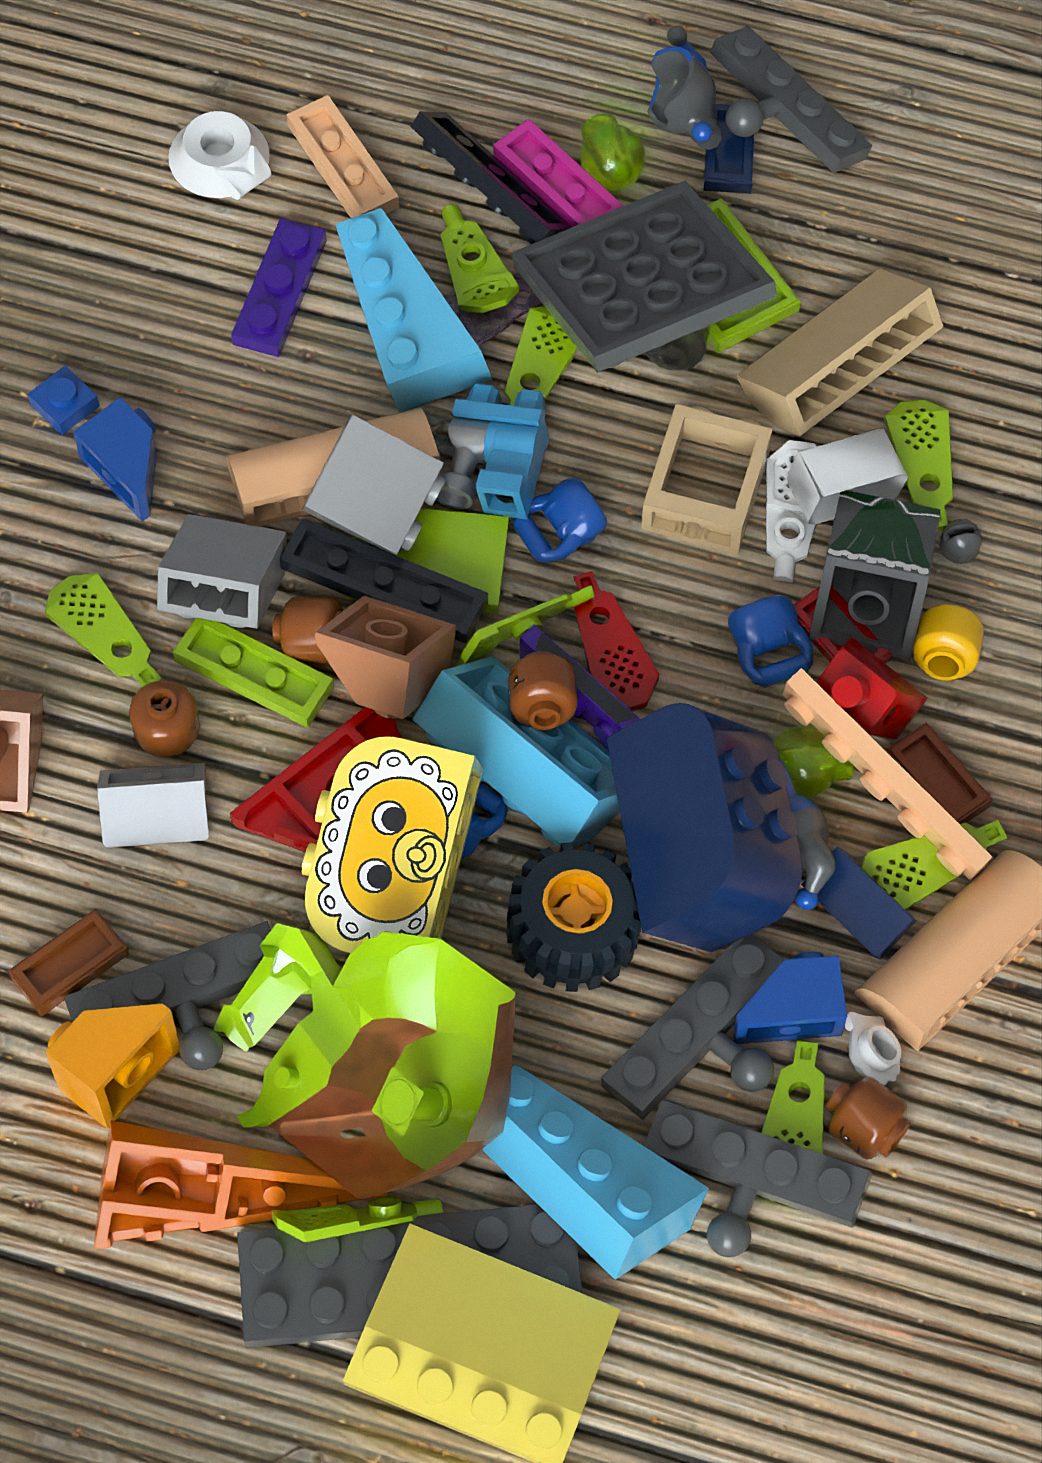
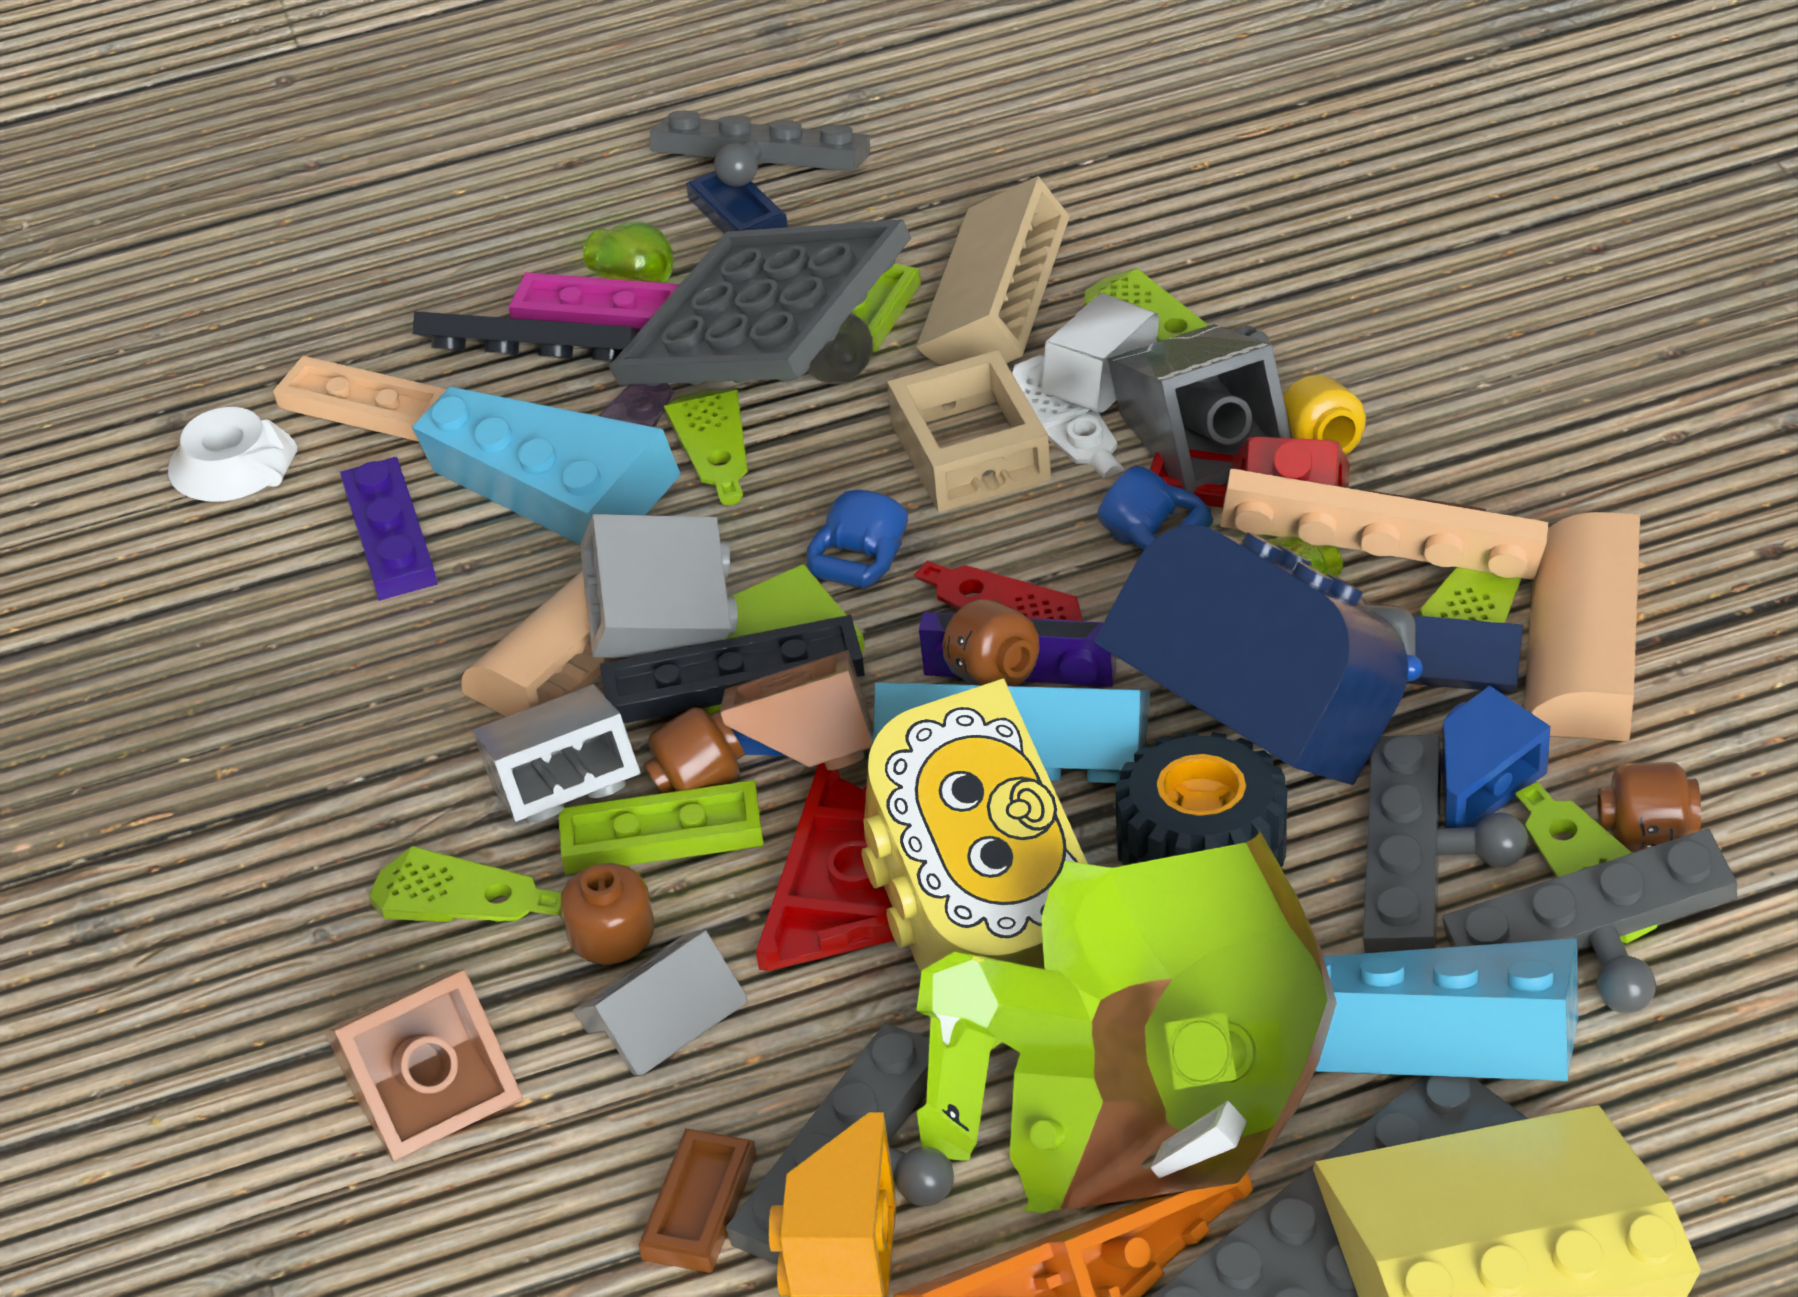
camera: 30 degrees left, 20 degrees down
(63, 400) = (236, 735): blue plate -> none
(122, 453) = (348, 735): blue slope -> none
(342, 1219) = (1225, 1229): lime piece -> none
(370, 1151) = (1201, 1140): none -> white piece
(474, 275) = (614, 404): lime piece -> none
(487, 638) = (903, 628): lime piece -> none
(503, 438) = (747, 499): dark azure hips -> none
(684, 92) = (661, 176): dark grey piece -> none
(873, 1047) = (1591, 751): white animal -> none

